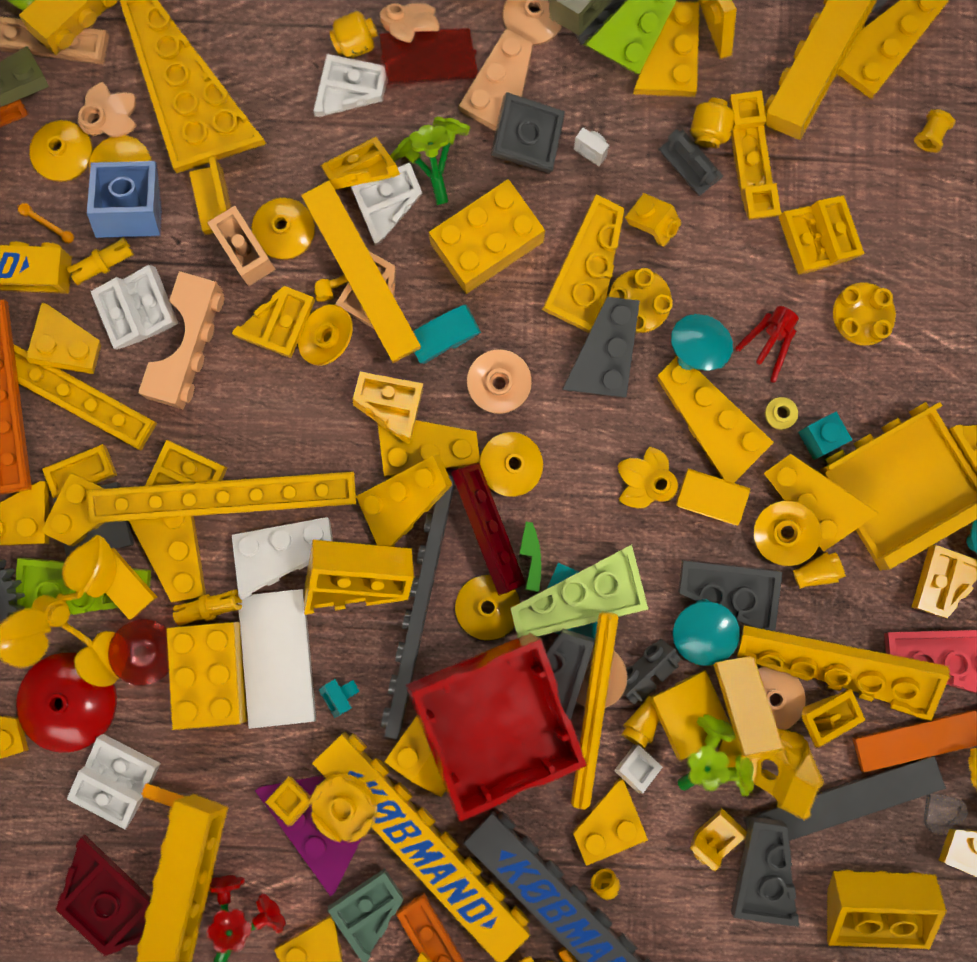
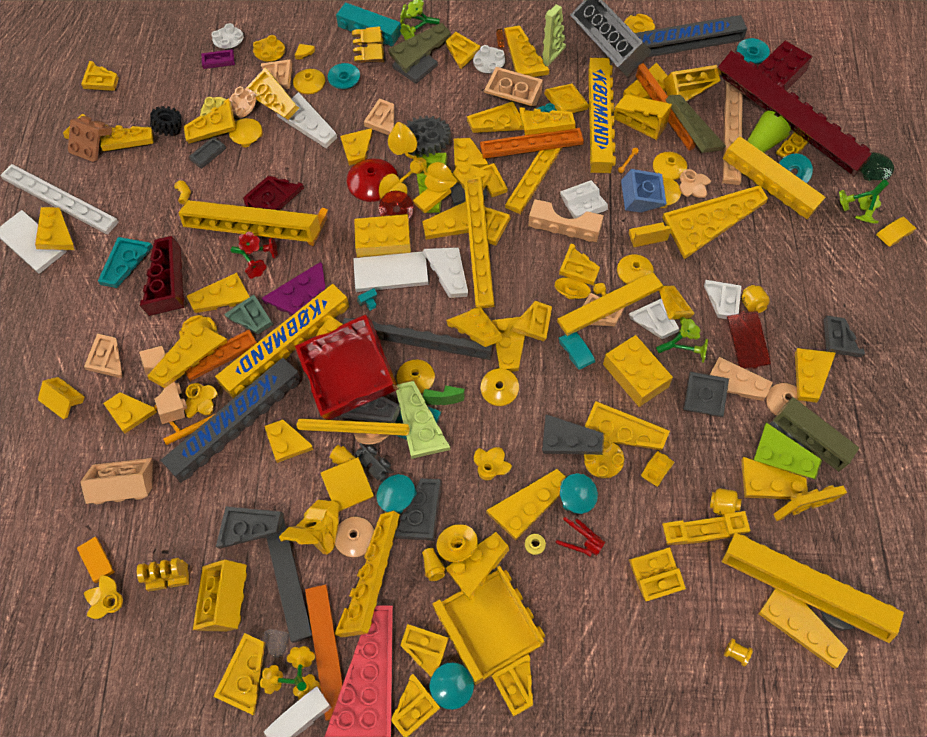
camera: 90 degrees right, 20 degrees down
(62, 343) = (561, 168): yellow wing -> none
(100, 261) = (608, 184): yellow pin -> none
(113, 781) = (332, 198): white slope -> none
(207, 607) = (418, 236): yellow pin -> none
(241, 246) = (619, 245): light nougat slope -> none
(289, 801) = (313, 275): yellow tile -> none
(343, 807) = (307, 298): yellow tile -> none
(356, 573) = (435, 302): yellow wedge -> none
(406, 20) = (770, 328): light nougat plate -> none
(488, 528) = (461, 371): dark red tile -> none
(504, 366) = (552, 371): light nougat dish -> none
(591, 145) = (702, 430): white plate -> none
(607, 879) = (252, 436): yellow hinge -> none
(638, 769) = (317, 454): white plate -> none
(690, 162) = (698, 491): dark grey hinge -> none
(710, 767) = (313, 478): lime plant -> none
(712, 497) = (479, 499): yellow slope -> none
(716, 839) = (271, 496): yellow bracket -> none
(748, 708) = (348, 510): yellow slope -> none
(825, 435) = (520, 568): teal brick -> none
(832, 717) = (339, 564): yellow slope -> none
(864, 313) = (604, 600): yellow dish -> none

